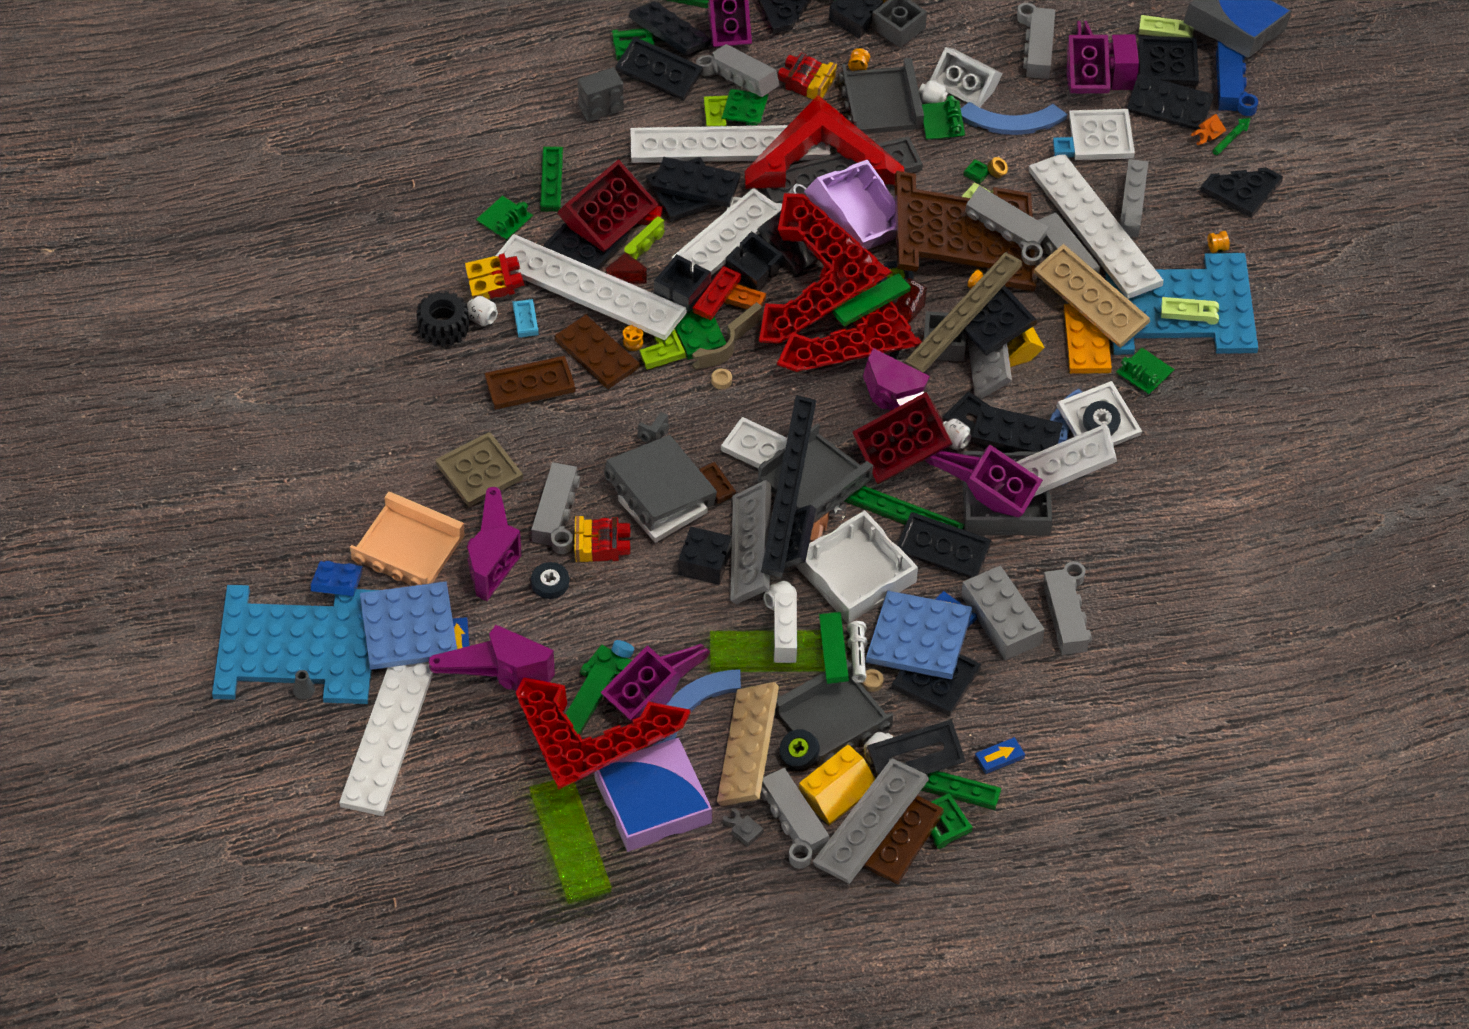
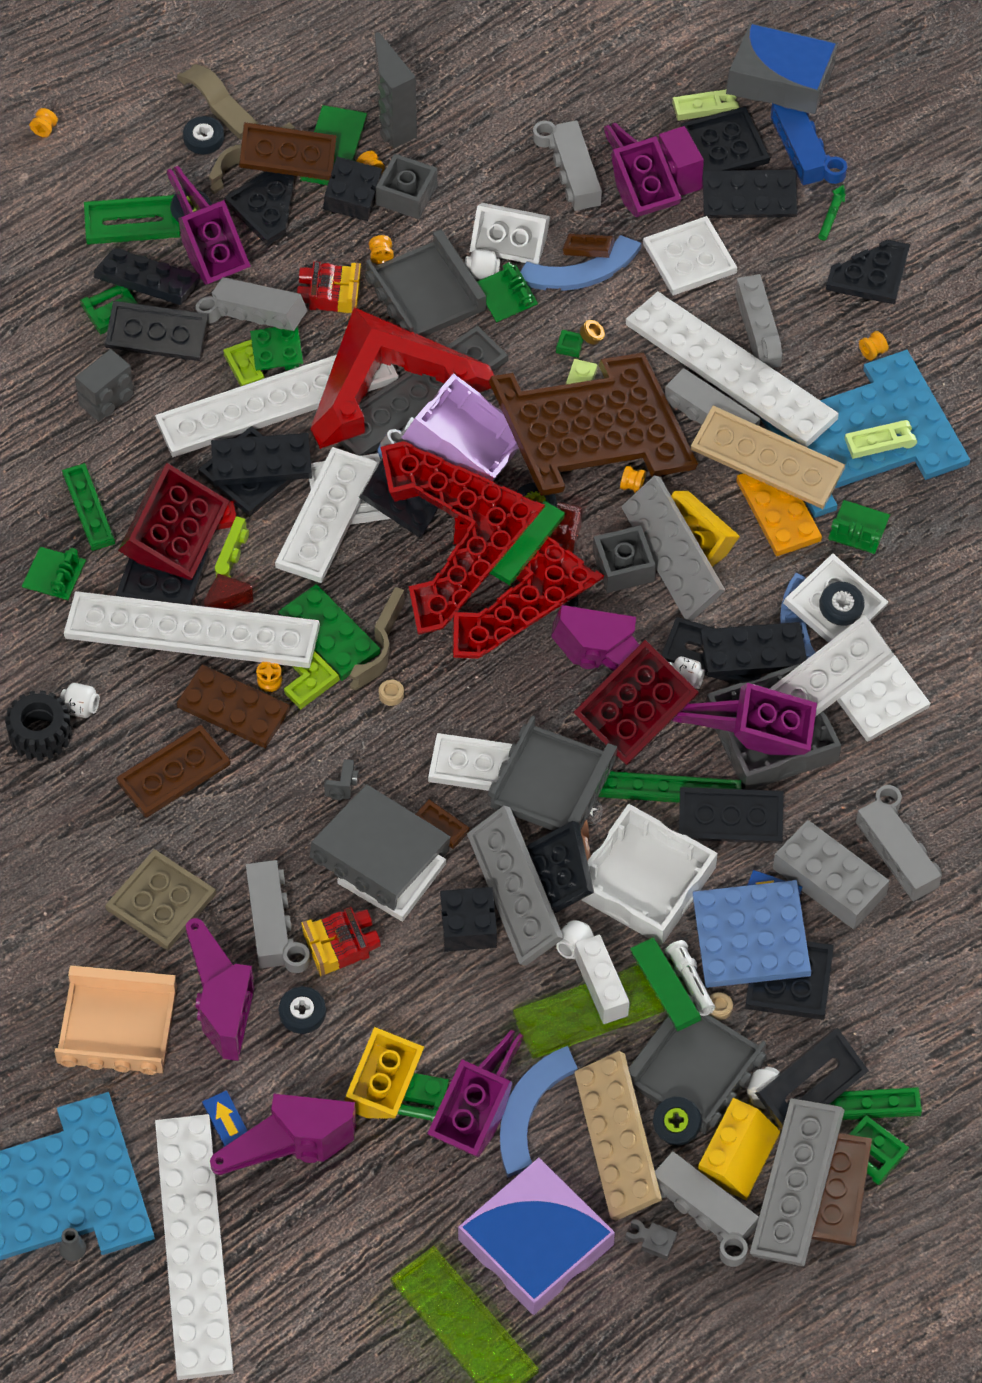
camera: 20 degrees left, 5 degrees up
(336, 578) = (53, 1095): blue plate -> none
(407, 624) = (164, 1125): medium blue plate -> none
(492, 276) = (75, 655): hips -> none
(525, 318) = (133, 692): medium azure plate -> none
(573, 757) = (443, 1228): red wedge -> none
(586, 641) = (383, 1075): none -> yellow slope
(589, 697) = (409, 1153): green tile -> none
(622, 649) = (426, 1068): dark azure tile -> none
(676, 283) = (301, 598): black piece -> none
(717, 293) = (345, 590): red plate -> none
(745, 297) = (372, 583): orange plate -> none
(757, 261) = (372, 537): black piece -> none
(788, 486) = (535, 806): black plate -> none
(963, 312) = (641, 527): dark tan tile -> none
(999, 322) = (676, 522): black plate -> none
(999, 755) = (899, 1048): blue tile -> none
(1008, 221) = (639, 397): light grey hinge -> none
(1024, 104) = (588, 245): none -> reddish brown plate
(1063, 146) = (654, 283): dark azure plate -> none
(1104, 497) = (883, 700): none -> white plate
(1209, 129) = (807, 213): orange plate -> none

